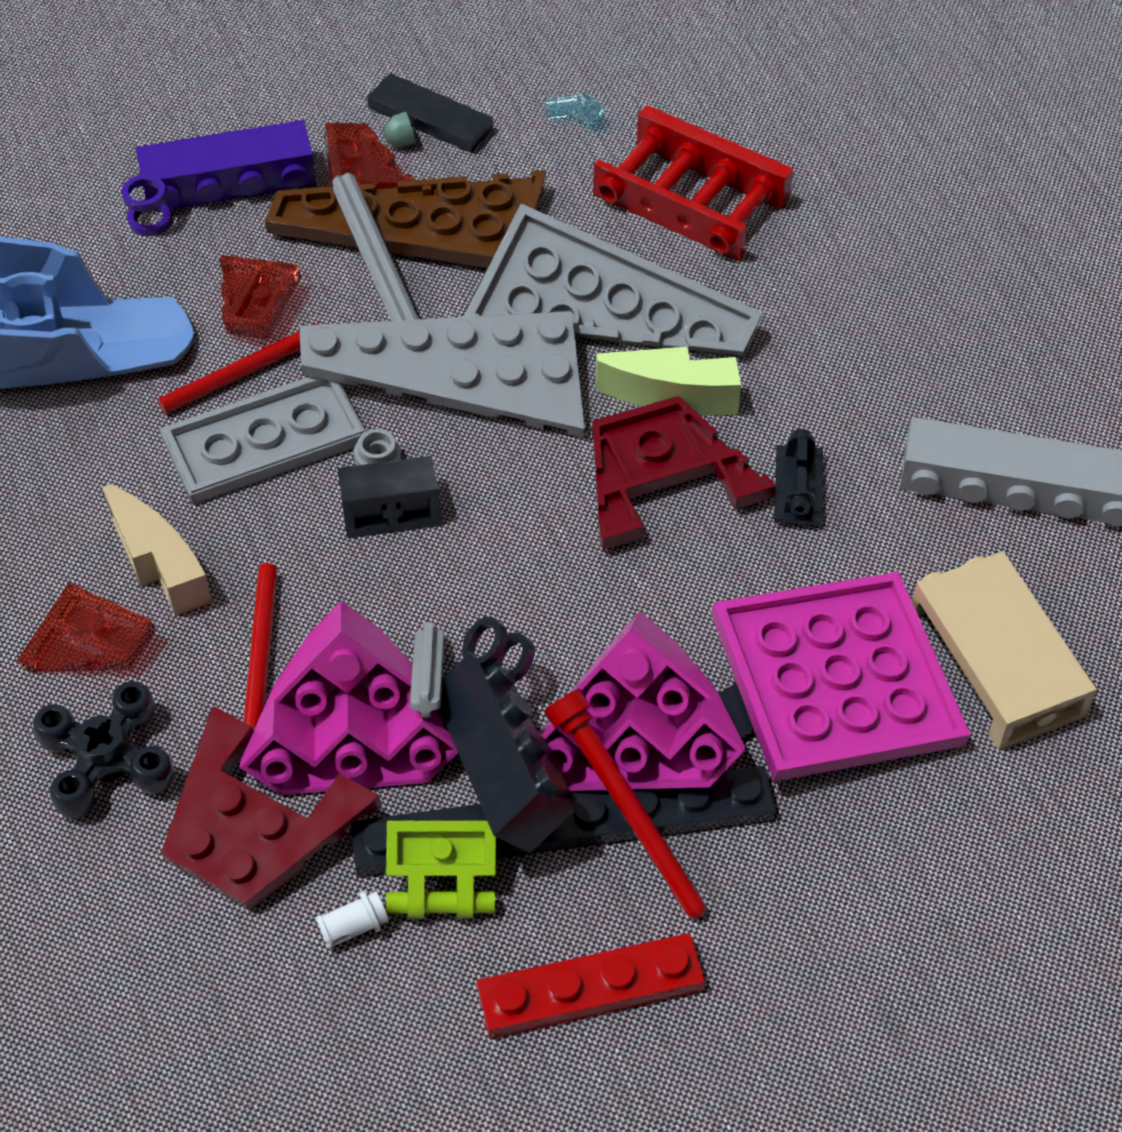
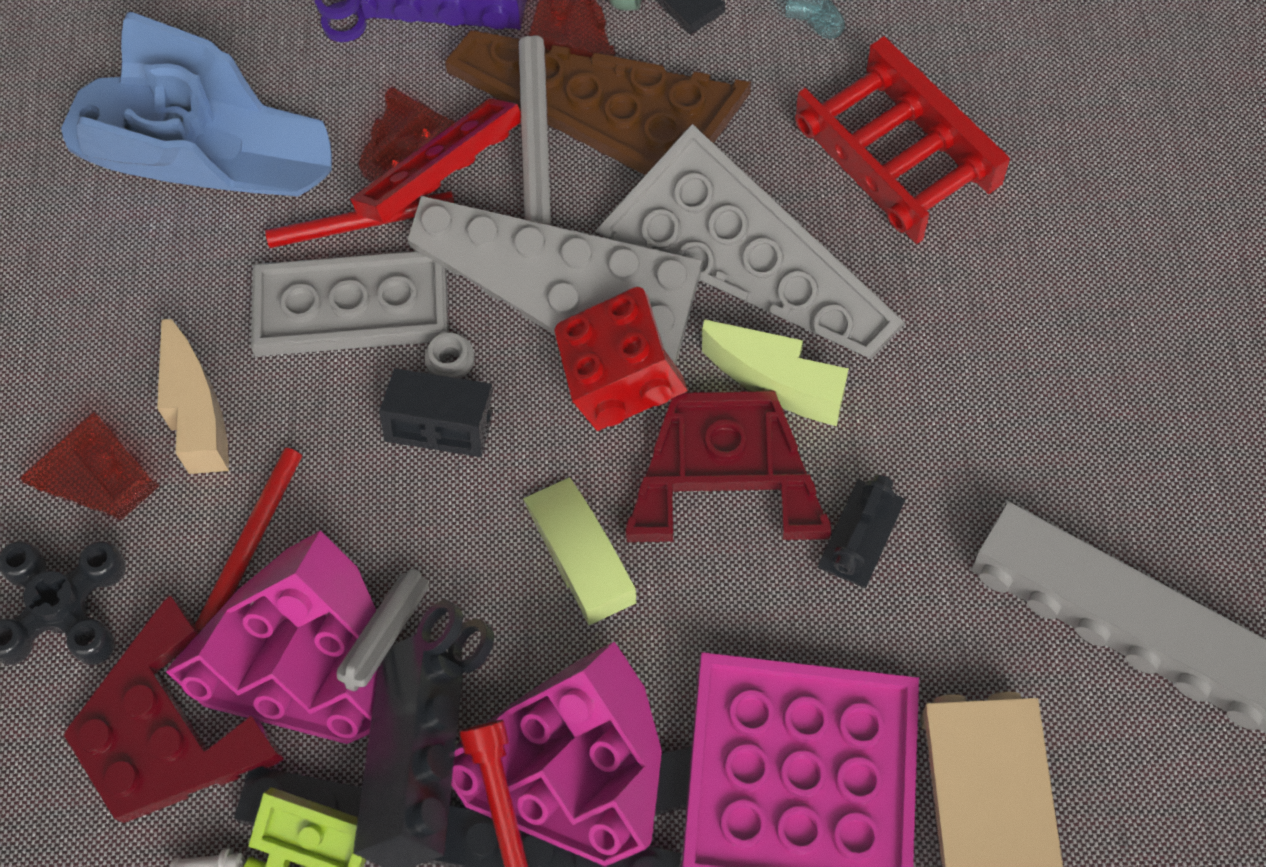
camera: 25 degrees right, 10 degrees up
(298, 296) = (437, 159): none -> red plate
(536, 404) = (617, 360): none -> red bracket
(570, 564) = (581, 551): none -> yellowish green slope

